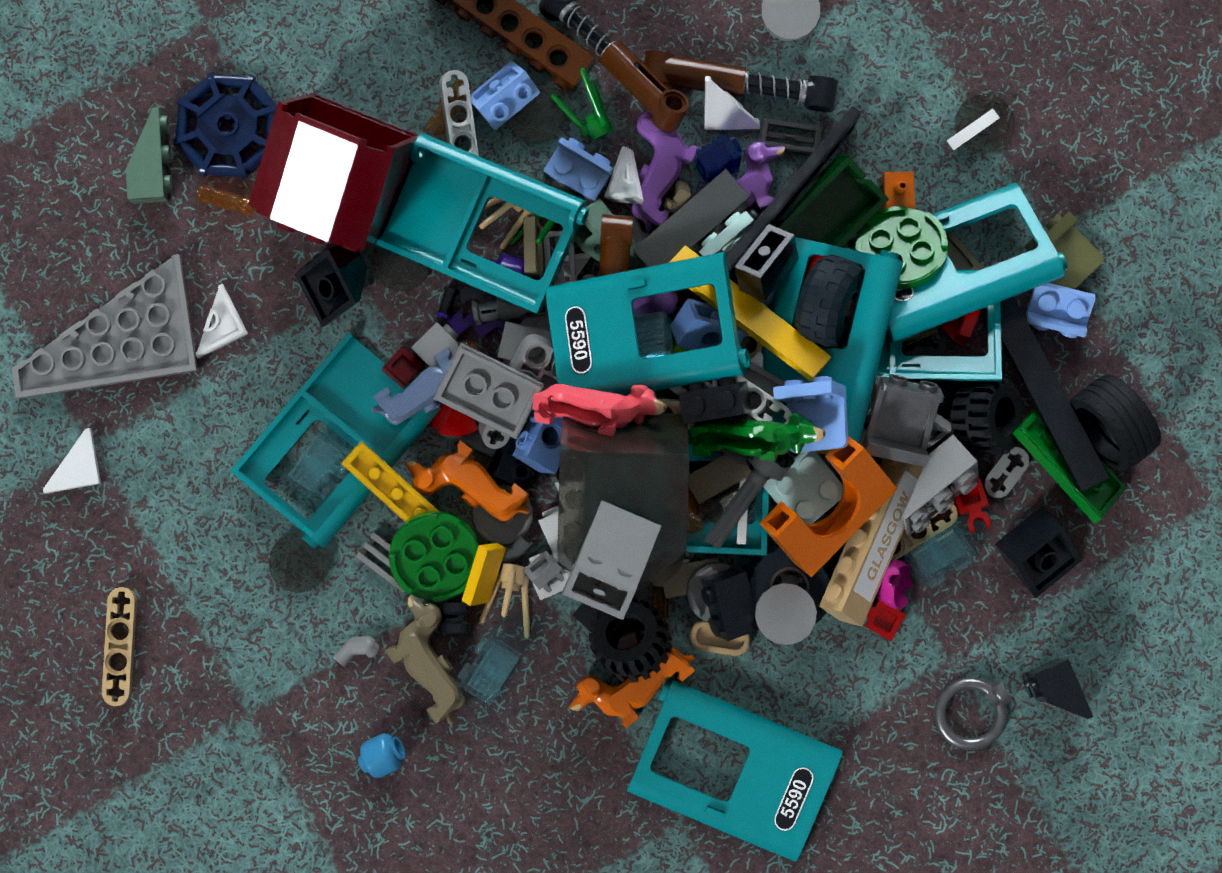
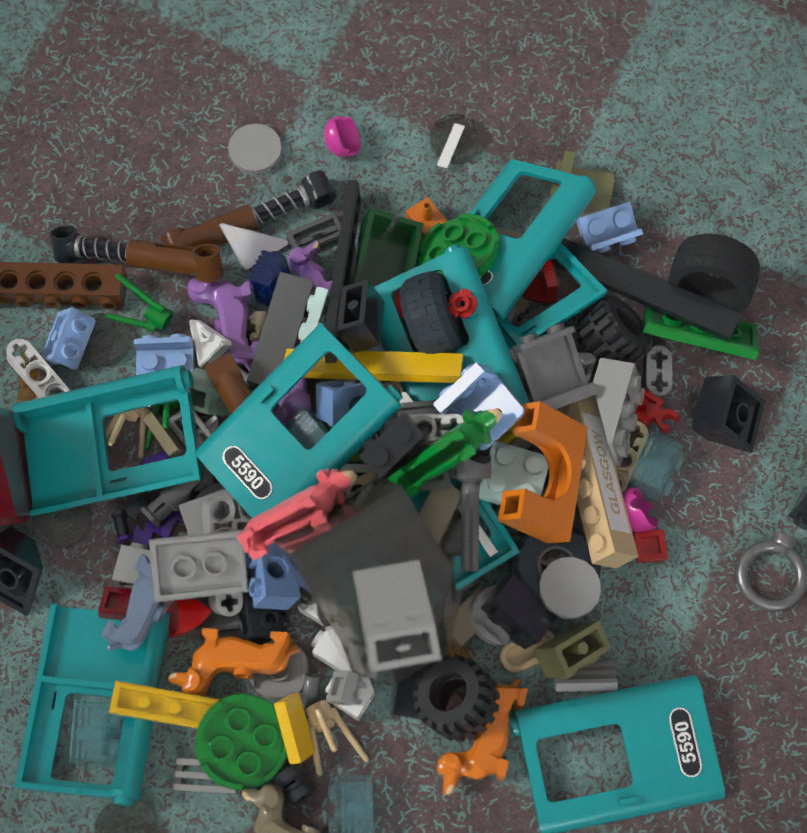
camera: 30 degrees left, 15 degrees down
(753, 687) = (593, 677): none -> light grey tile
(754, 663) = (572, 650): none -> olive brick
(868, 316) = (469, 307): none -> red plate
(886, 50) = (339, 131): none -> dark pink hair

